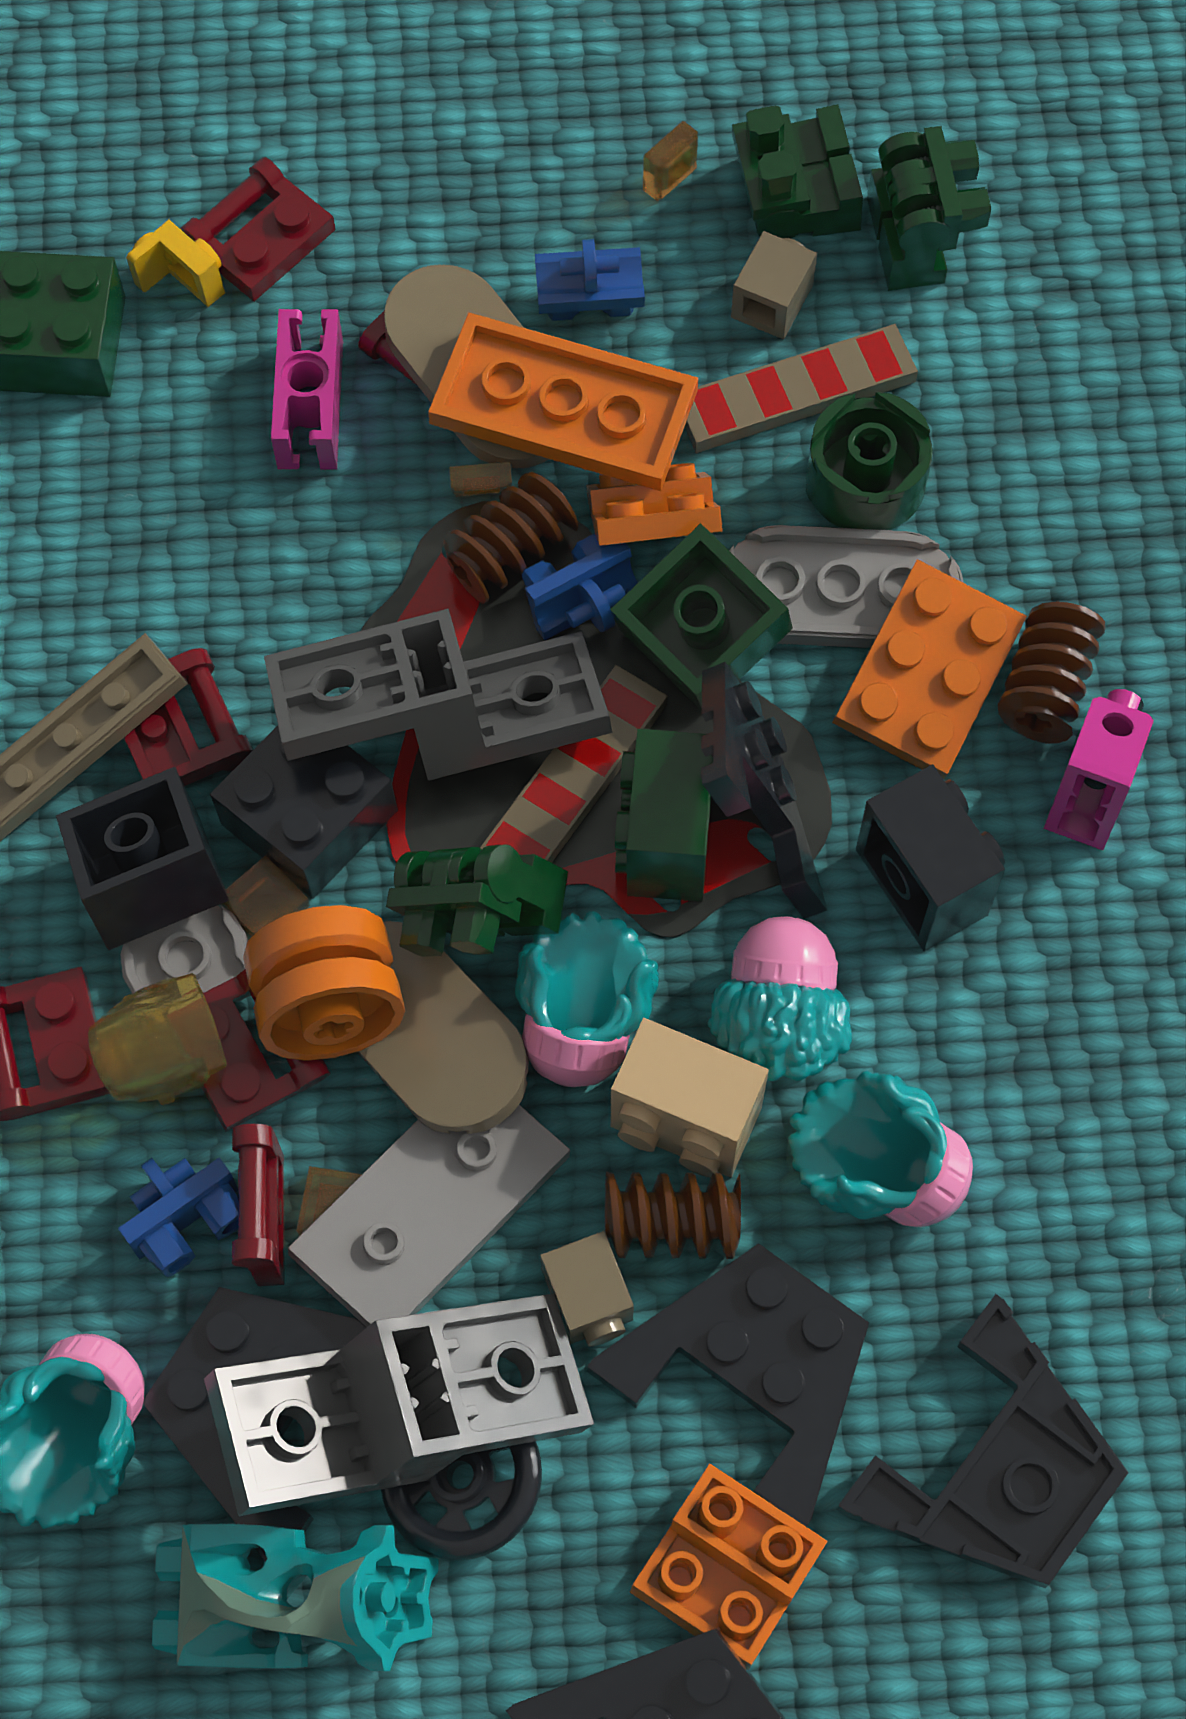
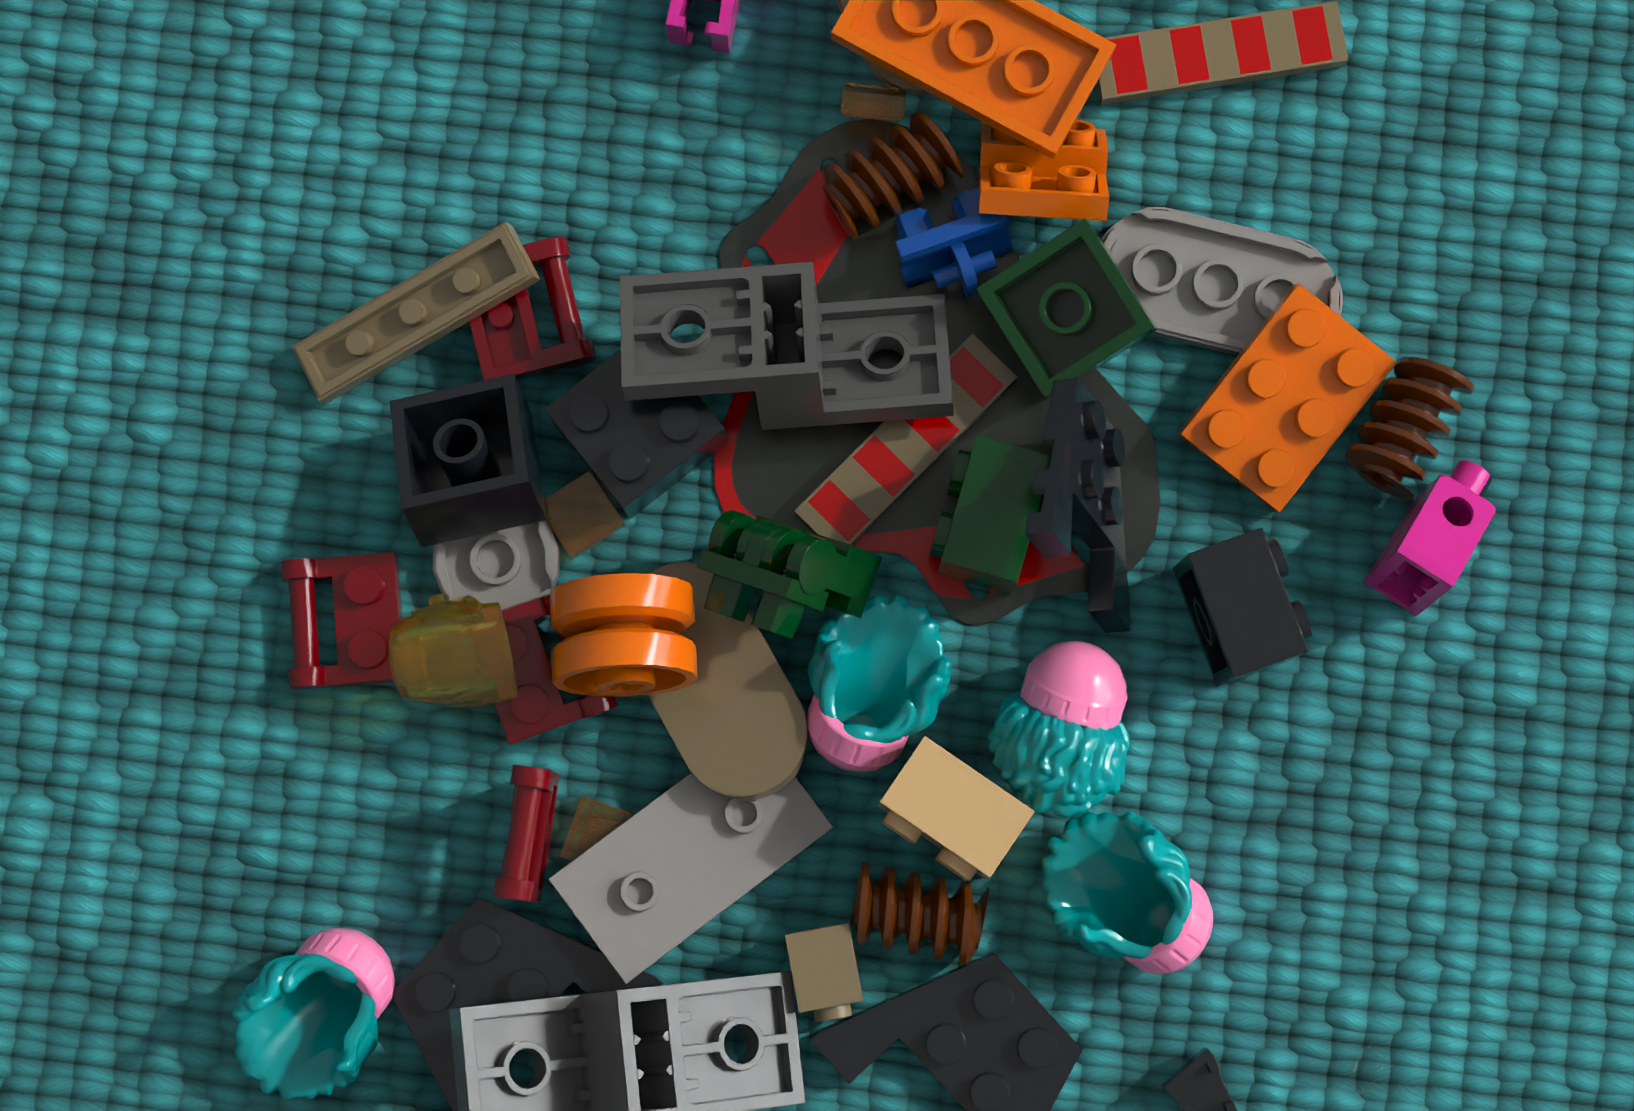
camera: 10 degrees right, 15 degrees up
(175, 1202) = (428, 835): blue hips -> none
(869, 462) = (1266, 129): dark green brick -> none

